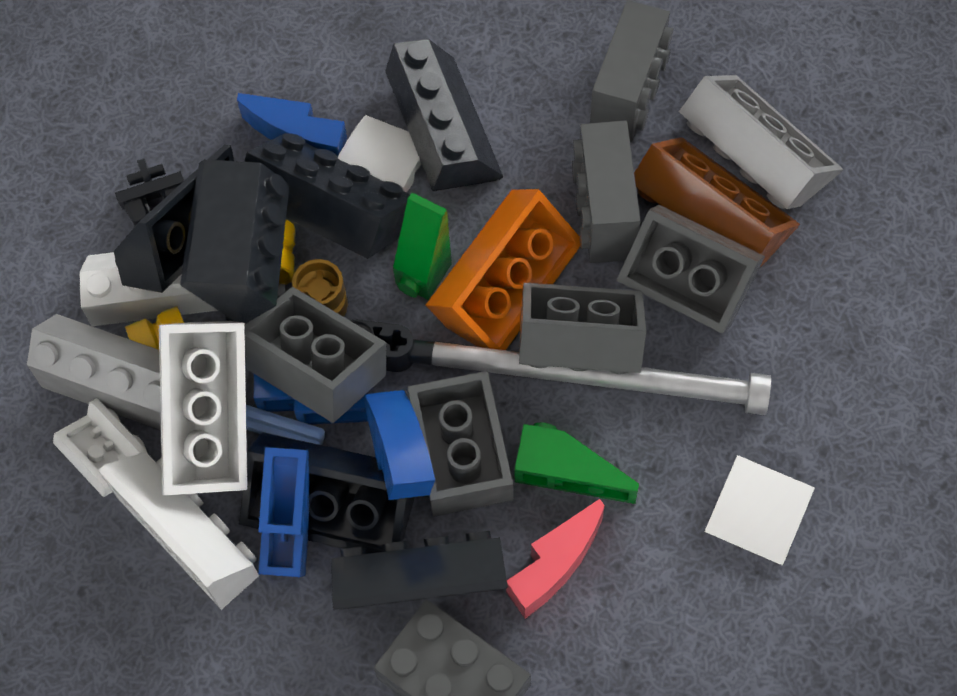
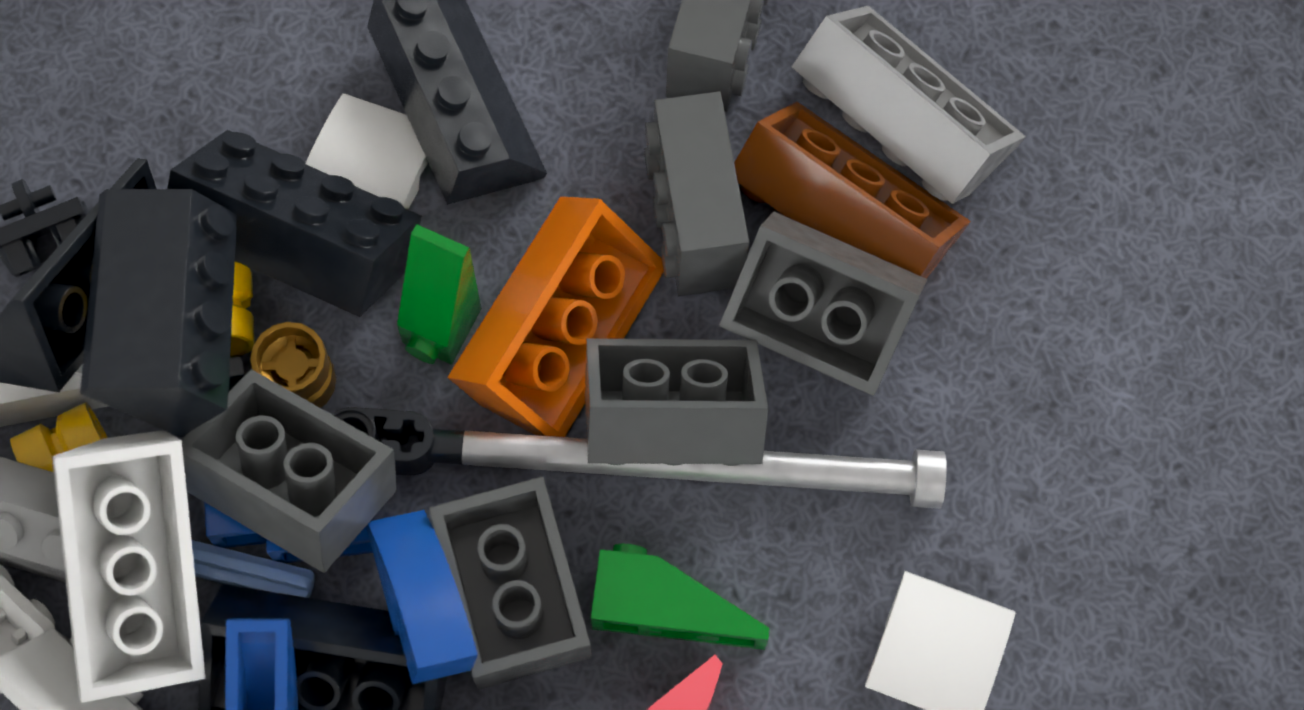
camera: 10 degrees left, 5 degrees up
(280, 116) = (239, 107): blue slope -> none

